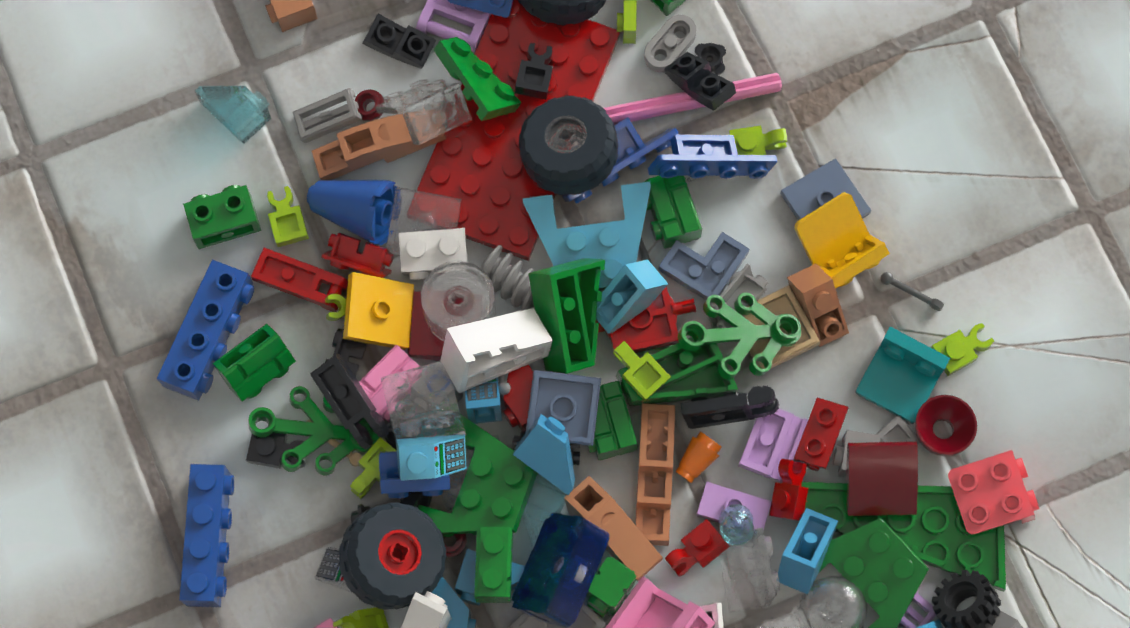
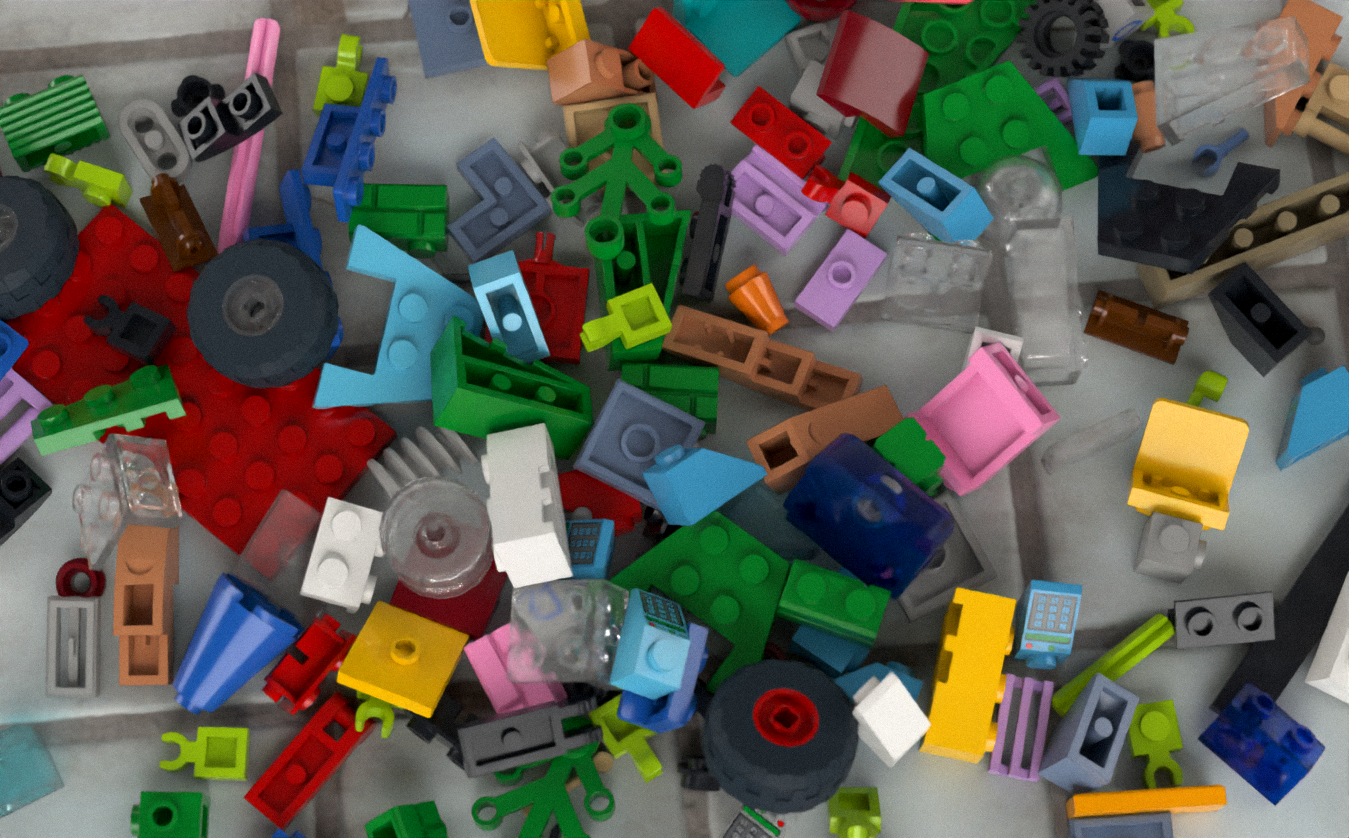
camera: 75 degrees left, 0 degrees up
(619, 76) = (177, 223): none -> reddish brown hinge
(701, 546) = (879, 335): red plate -> none
(736, 516) = (860, 284): clear light blue wheel -> none
(846, 348) = (678, 59): none -> red panel

